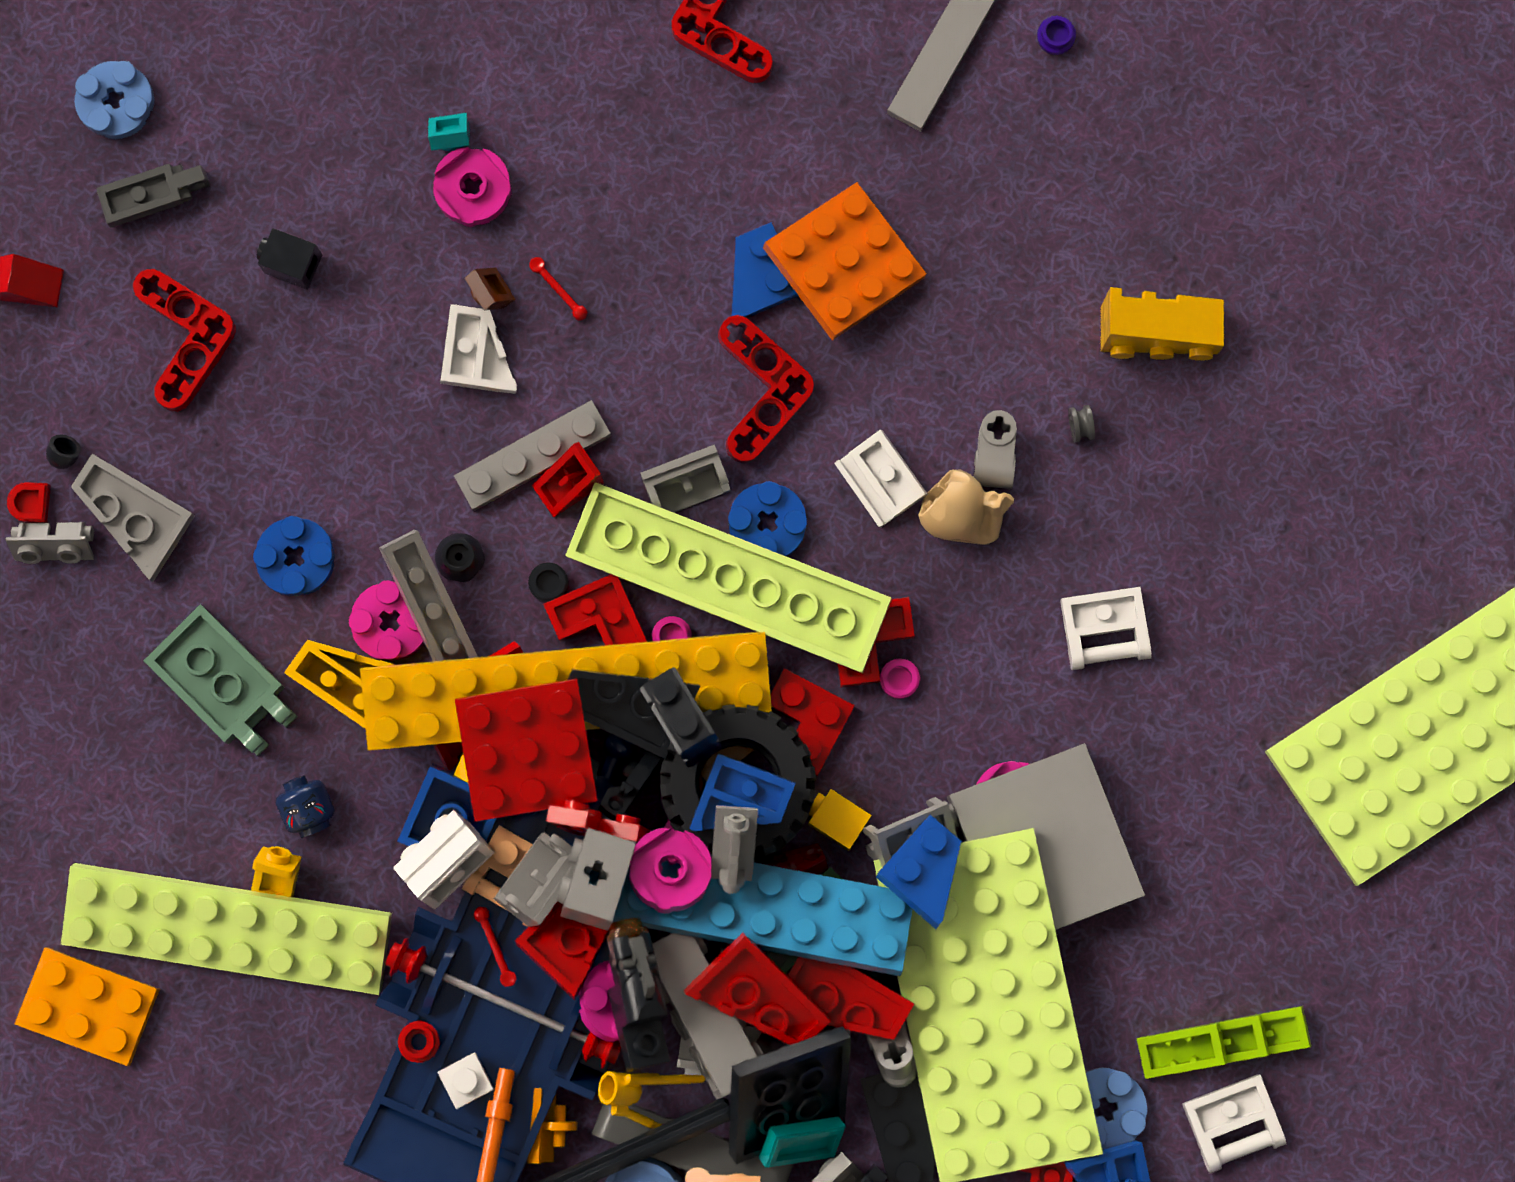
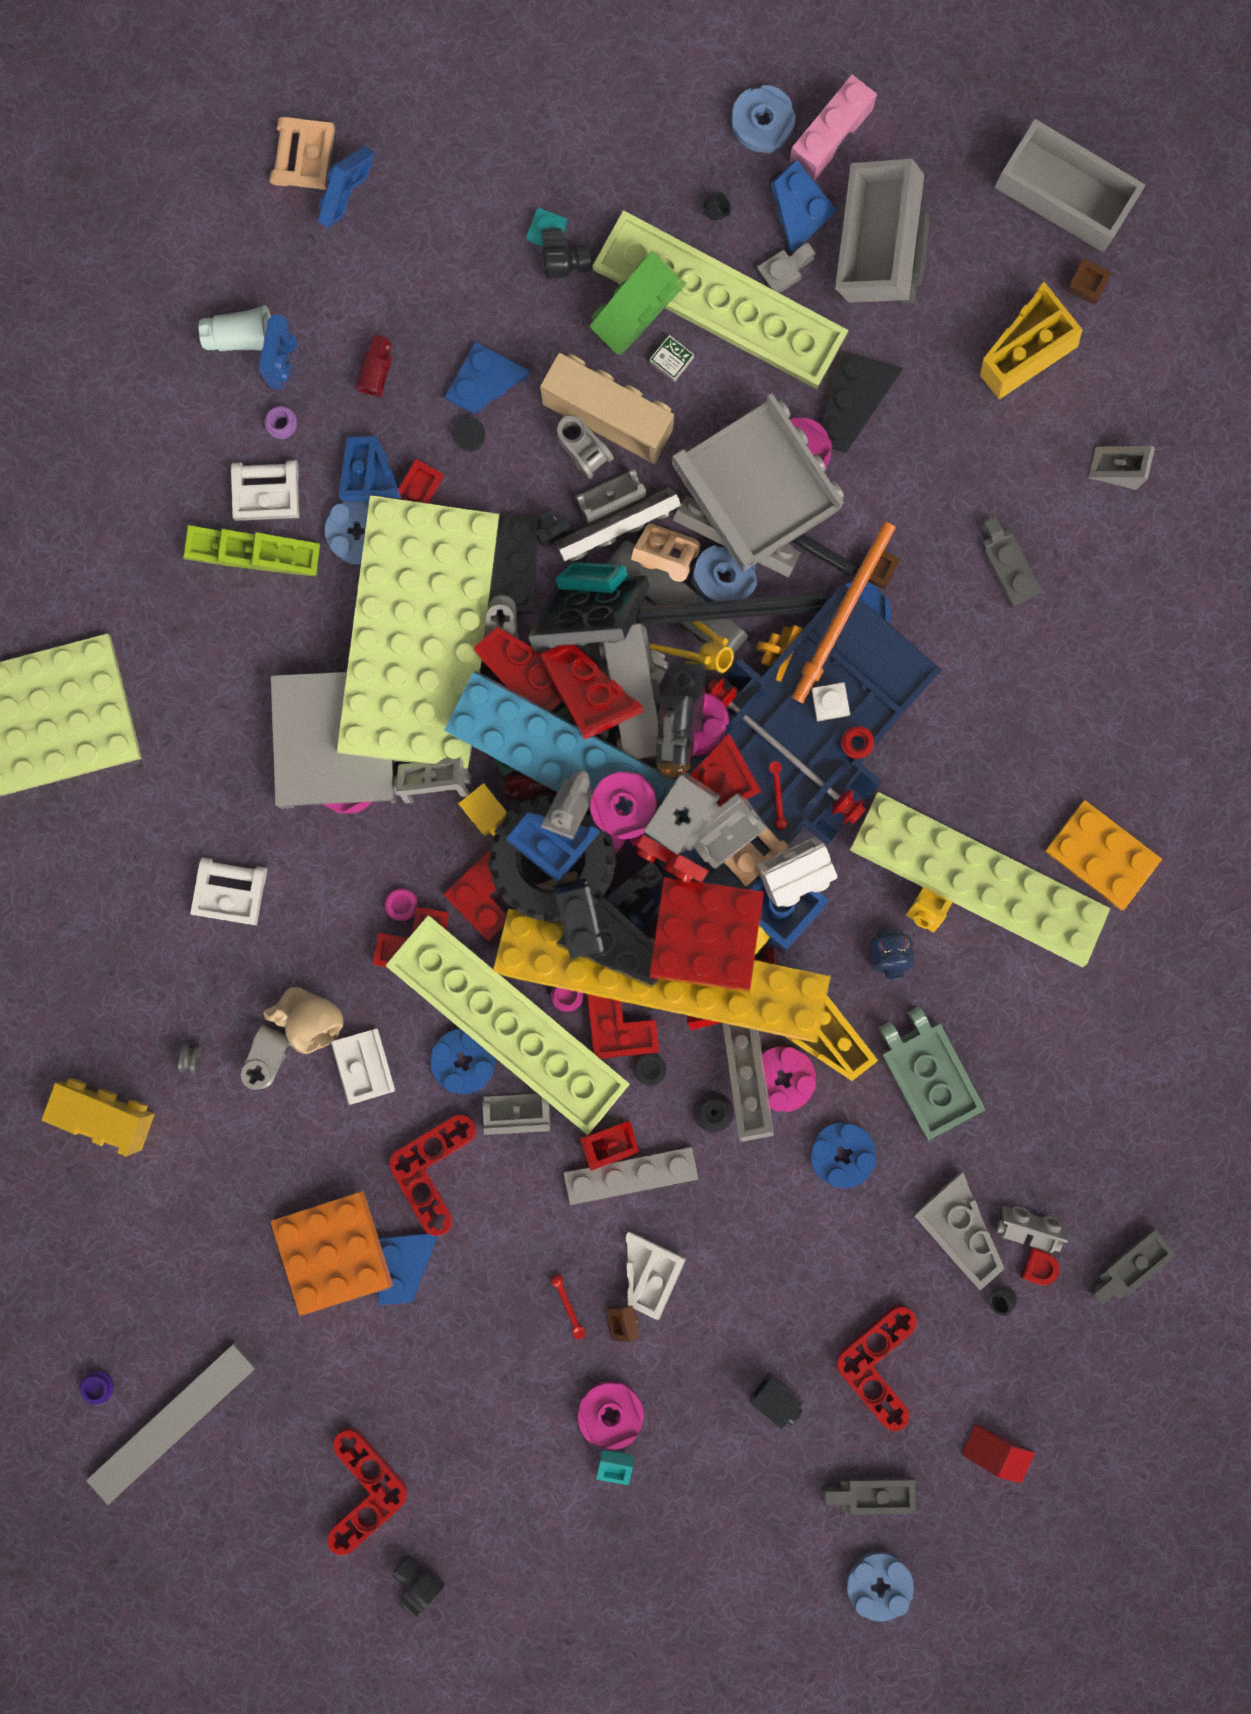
camera: 165 degrees left, 5 degrees up
(924, 870) = (430, 744): blue wing -> none

